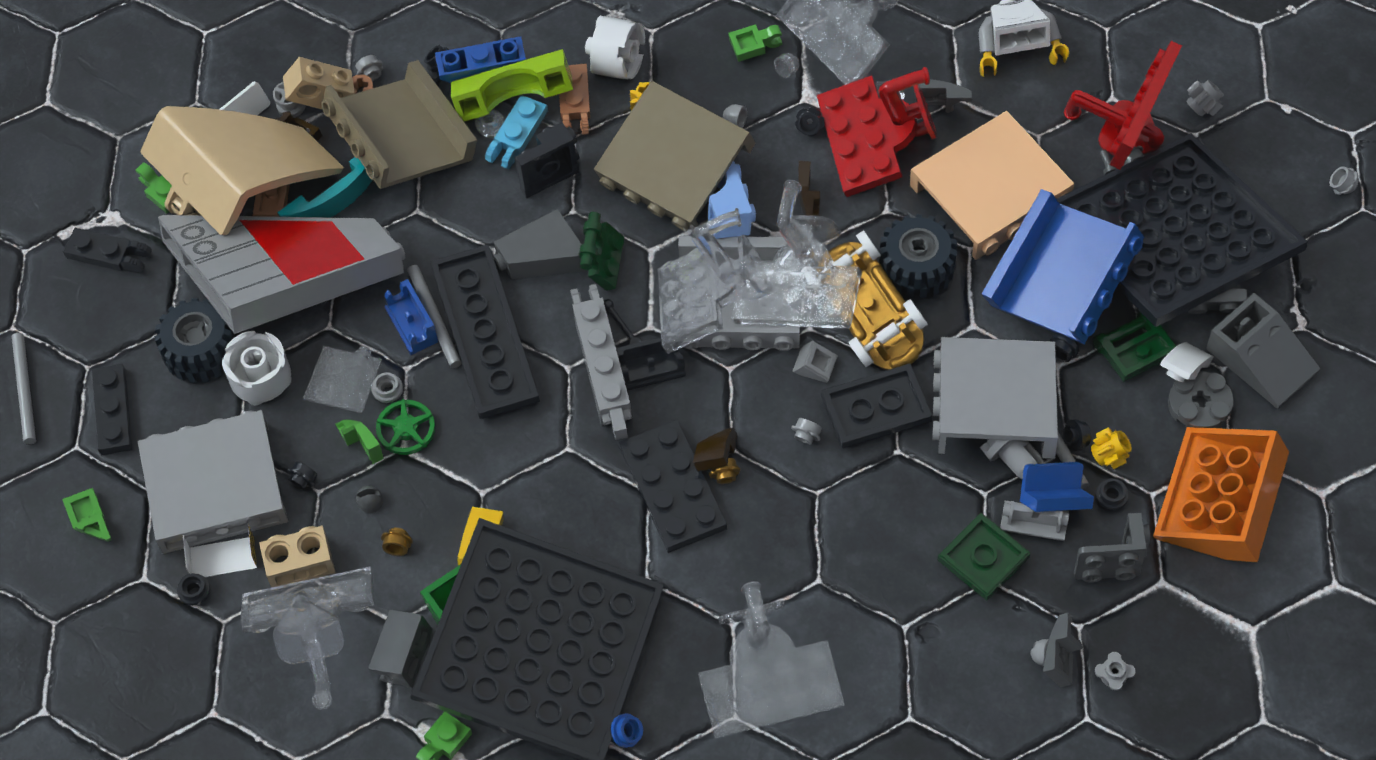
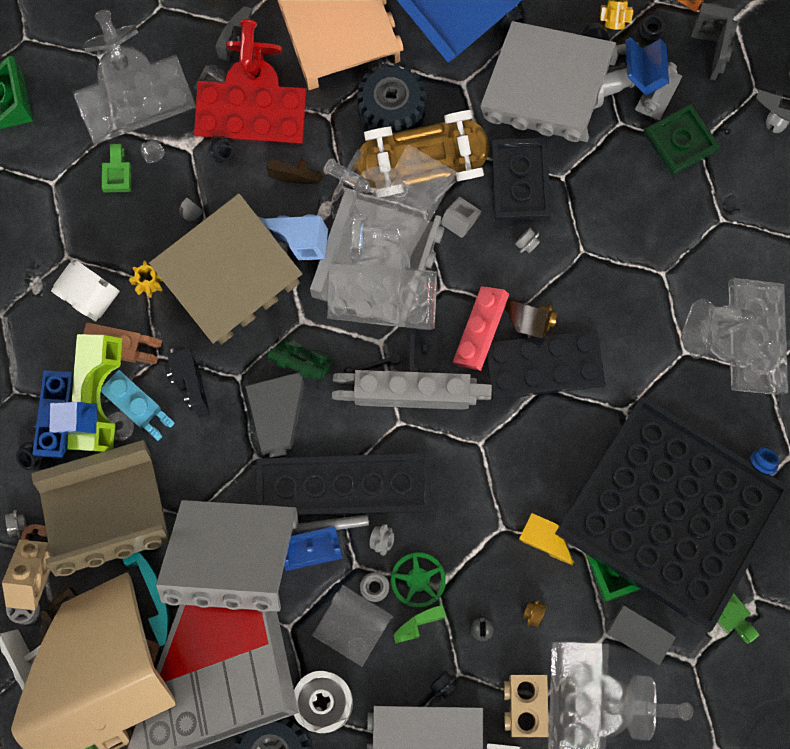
camera: 75 degrees left, 15 degrees up
(376, 232) = (227, 555): none -> light grey panel
(436, 379) = (381, 539): none -> light grey plate
(475, 68) = (73, 418): none -> brick
(691, 410) = (481, 328): none -> coral plate

